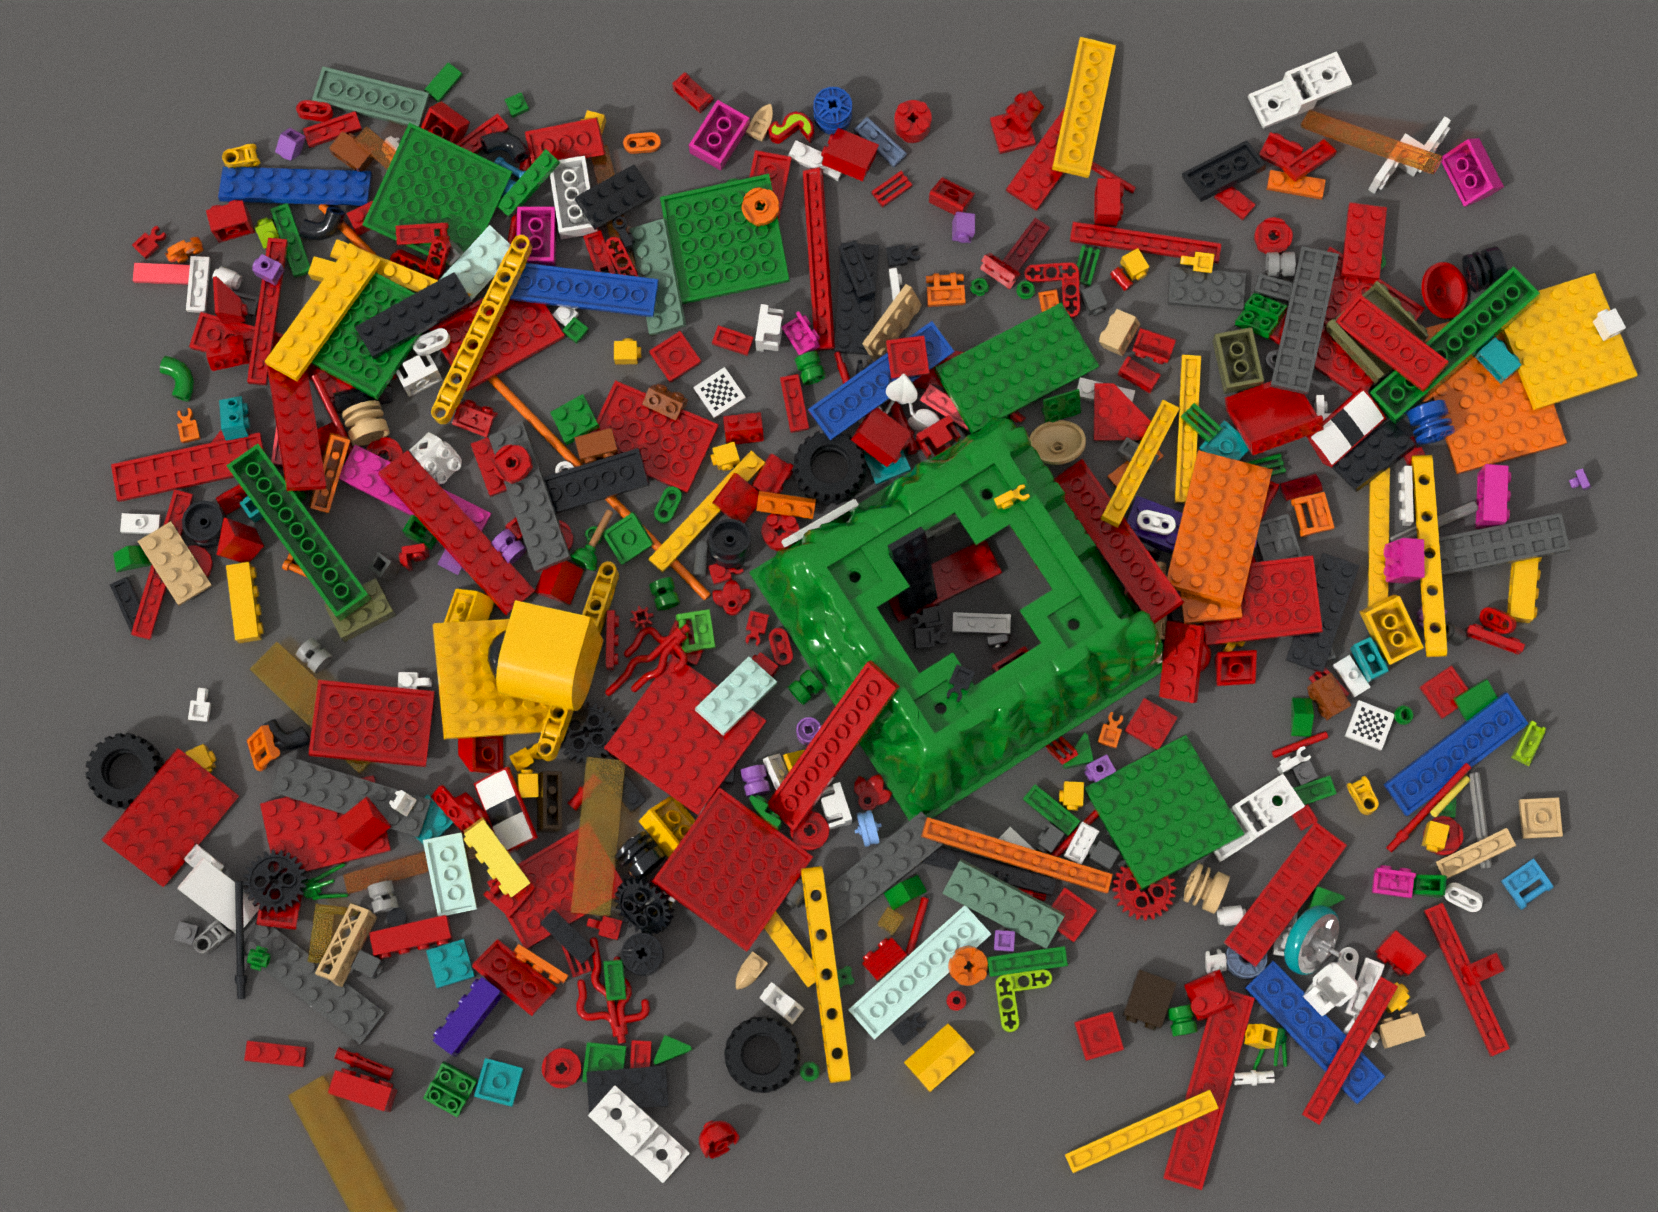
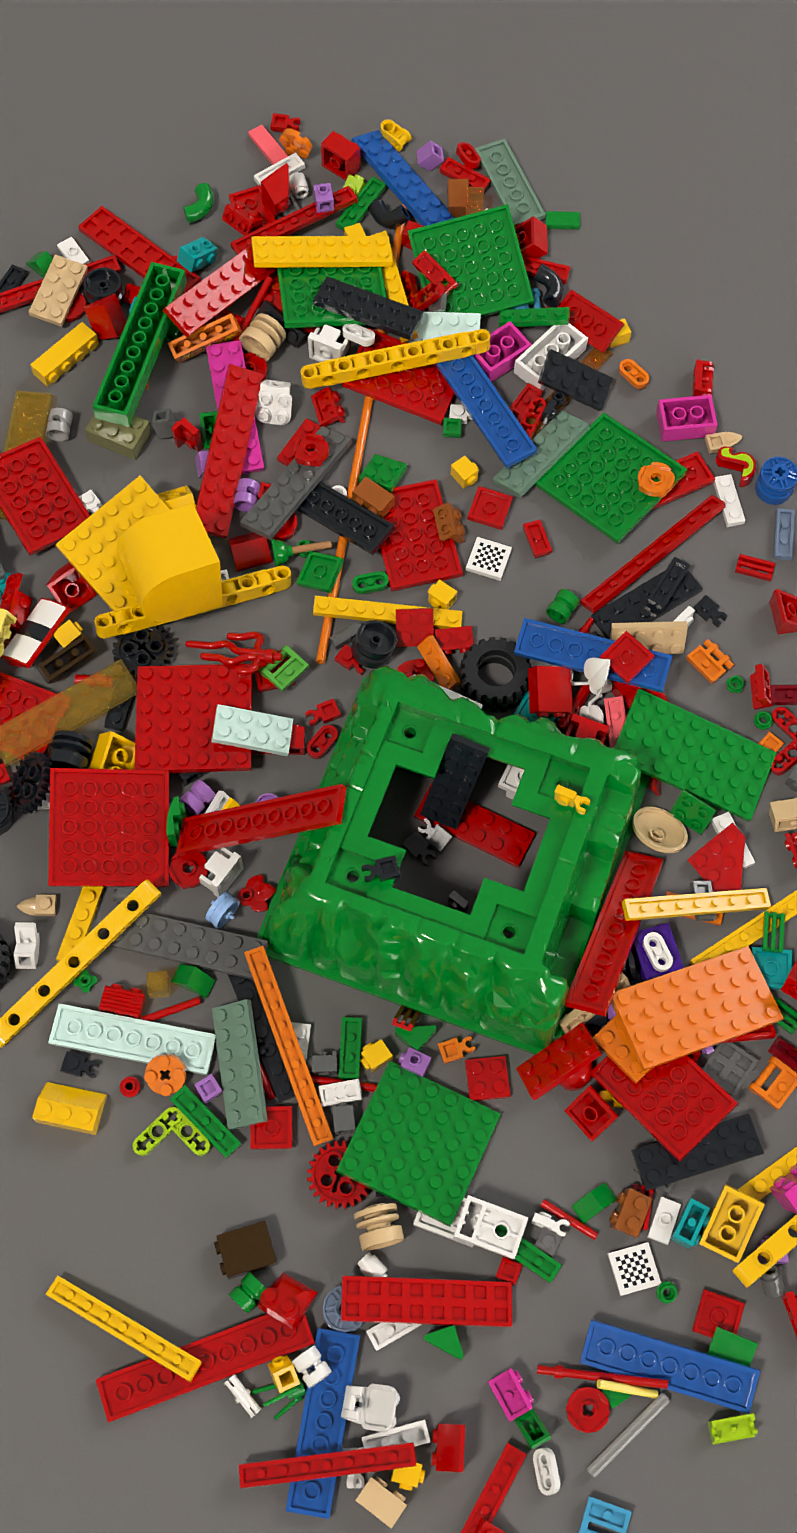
camera: 50 degrees right, 10 degrees down
(188, 429) = (167, 236): orange plate -> none
(516, 105) = (588, 276): green plate -> none
(525, 757) = (85, 618): yellow plate -> none
(611, 640) = (230, 616): red plate -> none
(643, 623) = (265, 630): red gear -> none
(666, 600) = (296, 627): green wheel -> none
(731, 595) = (335, 677): red plate -> none
(743, 428) = (475, 594): red bracket -> none
(769, 329) = (562, 552): white panel -> none
(794, 403) = (530, 609): red plate -> none
(801, 335) = (582, 581): dark pink bracket -> none
(805, 687) = (297, 779): green wheel -> none
(849, 154) = (754, 516): red brick -> none
(963, 227) = (771, 637): medium lavender brick -> none
(981, 623) = (461, 877): white plate -> none
(1098, 1036) = (183, 1230): red plate -> none
(1138, 375) = (770, 855): red hinge -> none
(1215, 962) = (321, 1284): white tile -> none
(1265, 1011) = (306, 1361): none -> white wheel
(1312, 940) = (400, 1340): wheel -> none
(1349, 966) = (404, 1408): white plate -> none
(1363, 794) = (569, 1305): yellow piece -> none
(1435, 836) = (579, 1401): yellow brick -> none
(1476, 853) = (594, 1452): tan plate -> none
(1540, 818) = (673, 1491): tan plate -> none

